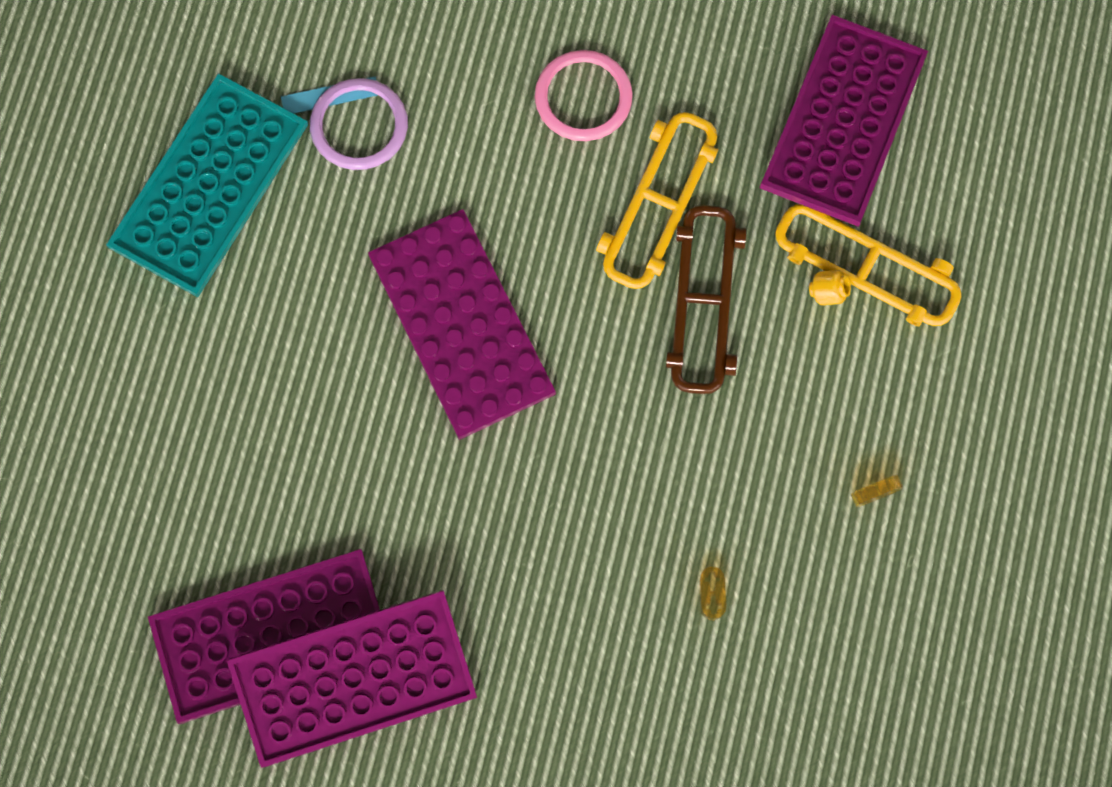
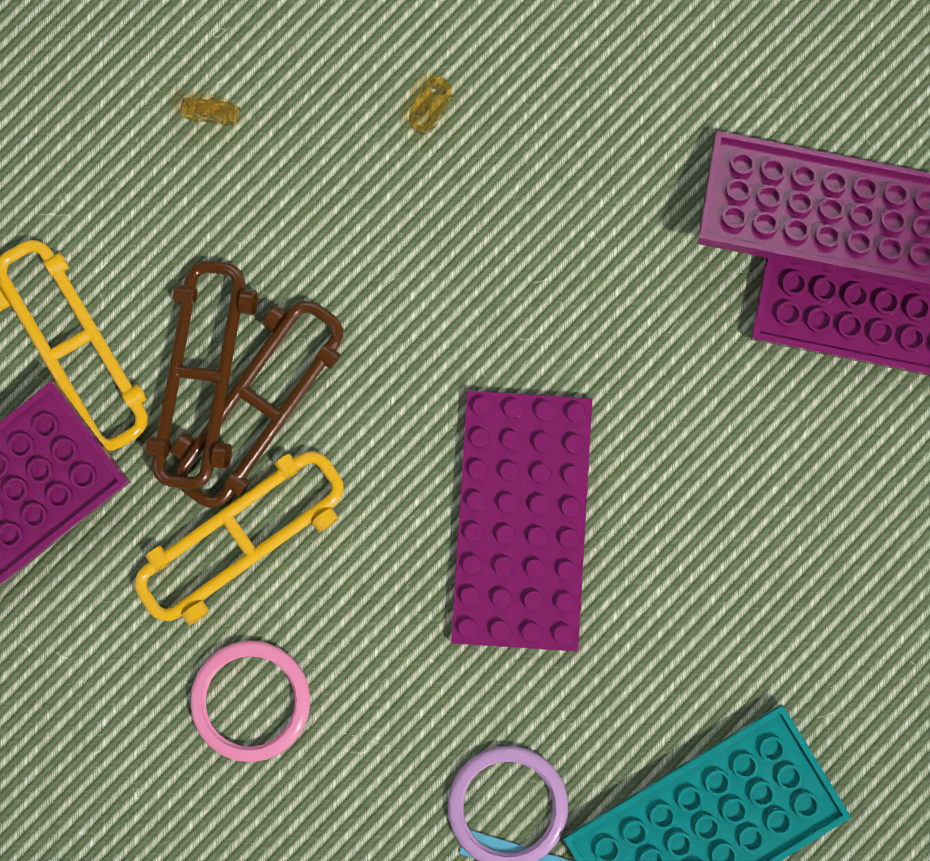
camera: 145 degrees left, 10 degrees up
(761, 361) = (215, 453): none -> reddish brown bar
(830, 287) = (125, 339): yellow head -> none

